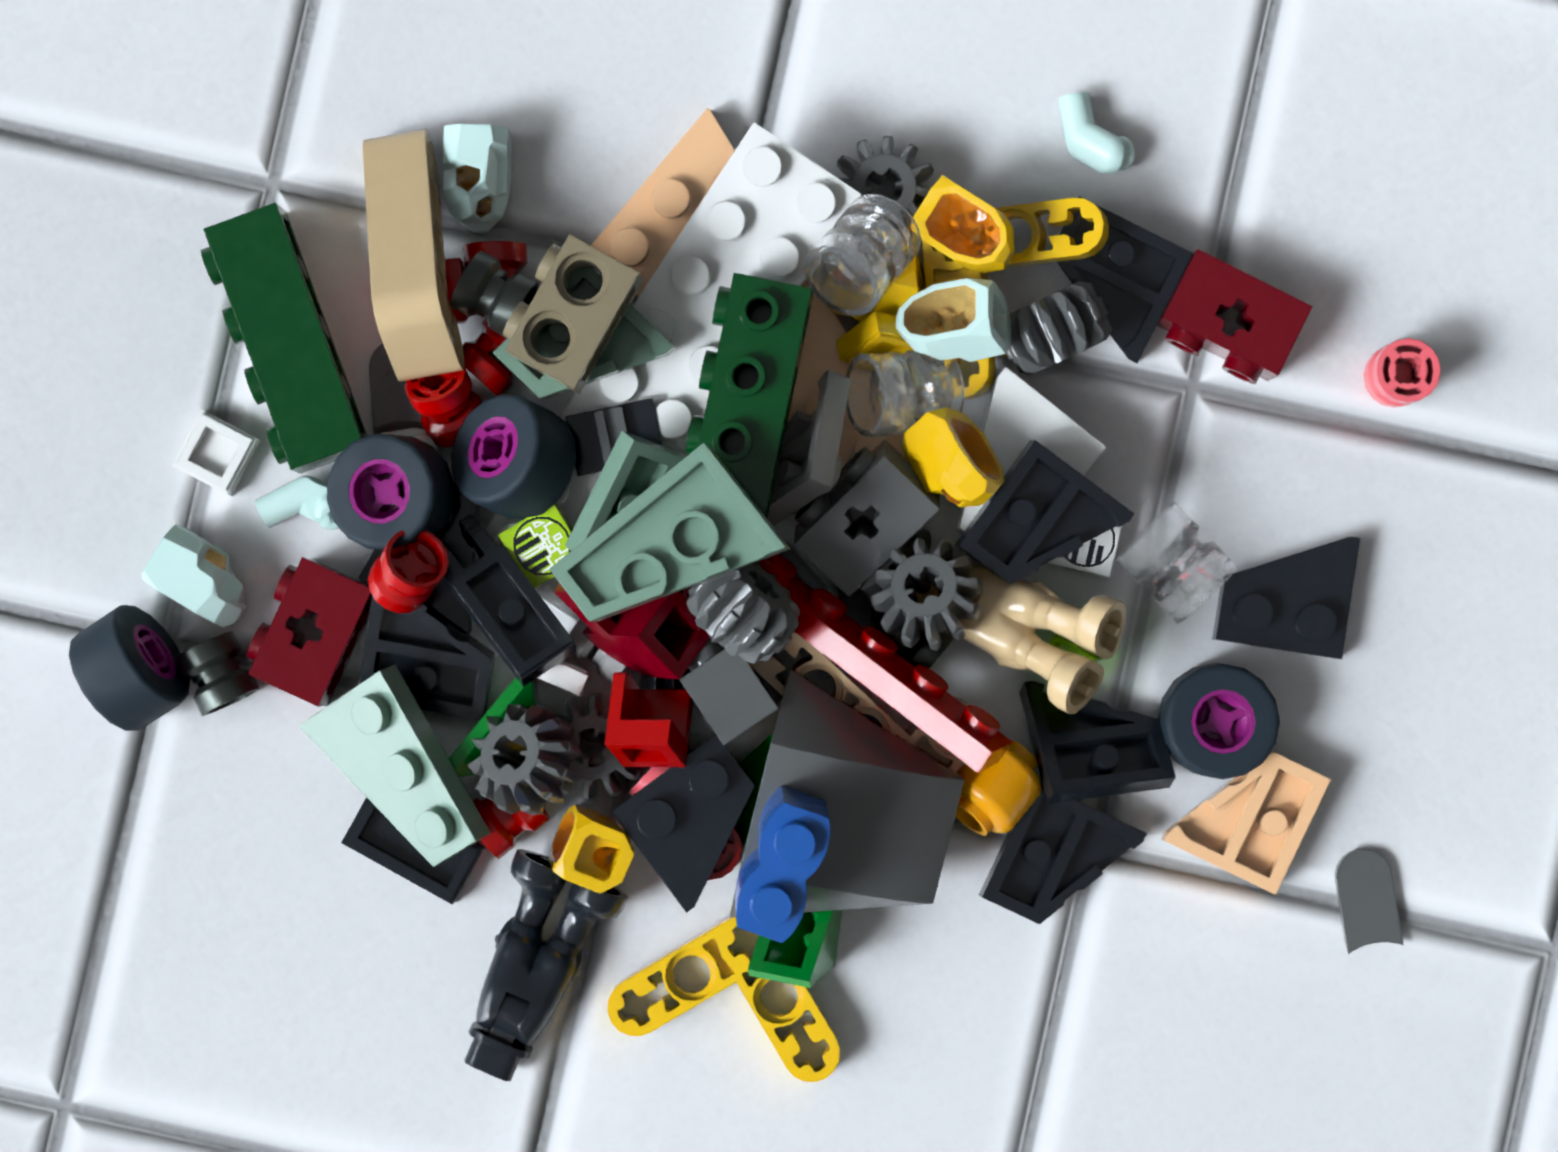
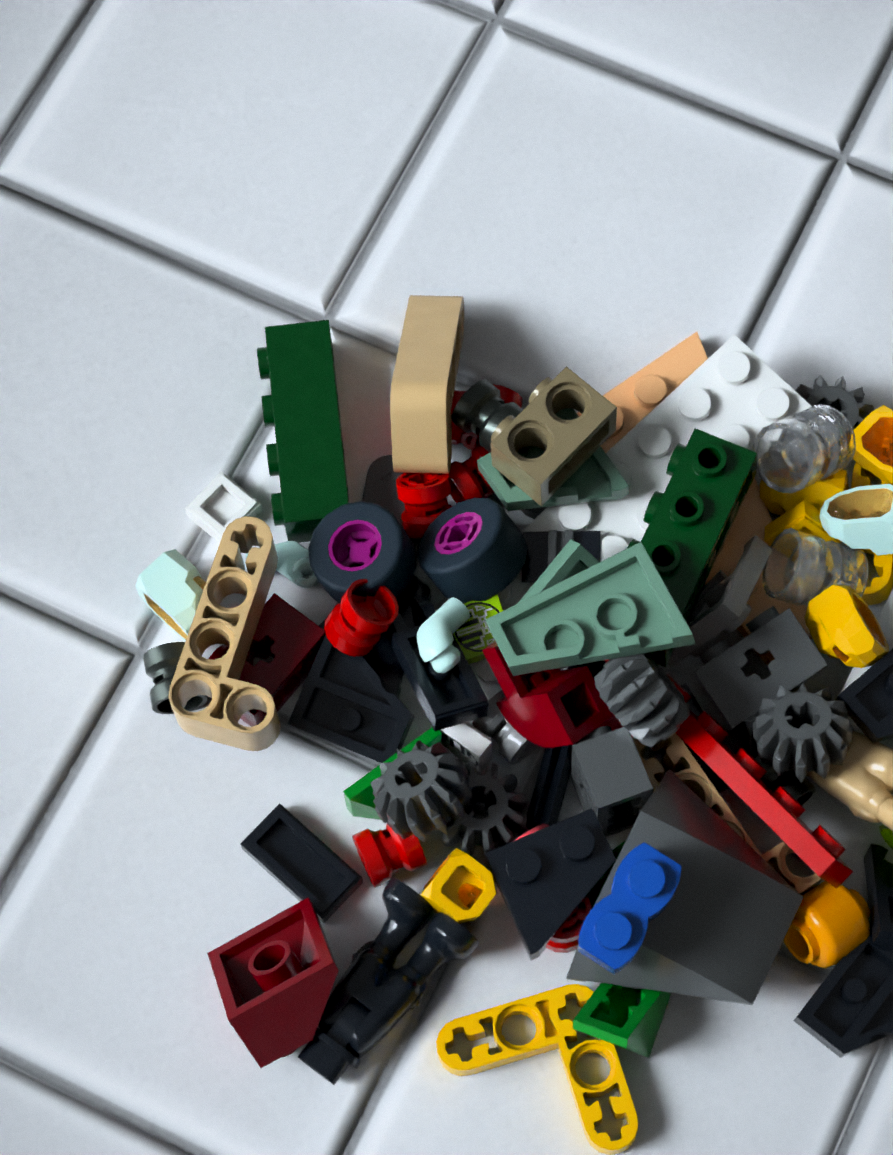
camera: 15 degrees right, 20 degrees down
(128, 668) = (103, 654): black wheel -> none
(272, 622) = (235, 629): none -> tan beam
(399, 765) = (314, 784): wing -> none
(418, 992) = (276, 981): none -> dark red slope
(477, 173) = (496, 338): light aqua rock -> none
(497, 577) = (436, 636): none -> light aqua arm
(648, 724) = (533, 791): red panel -> none

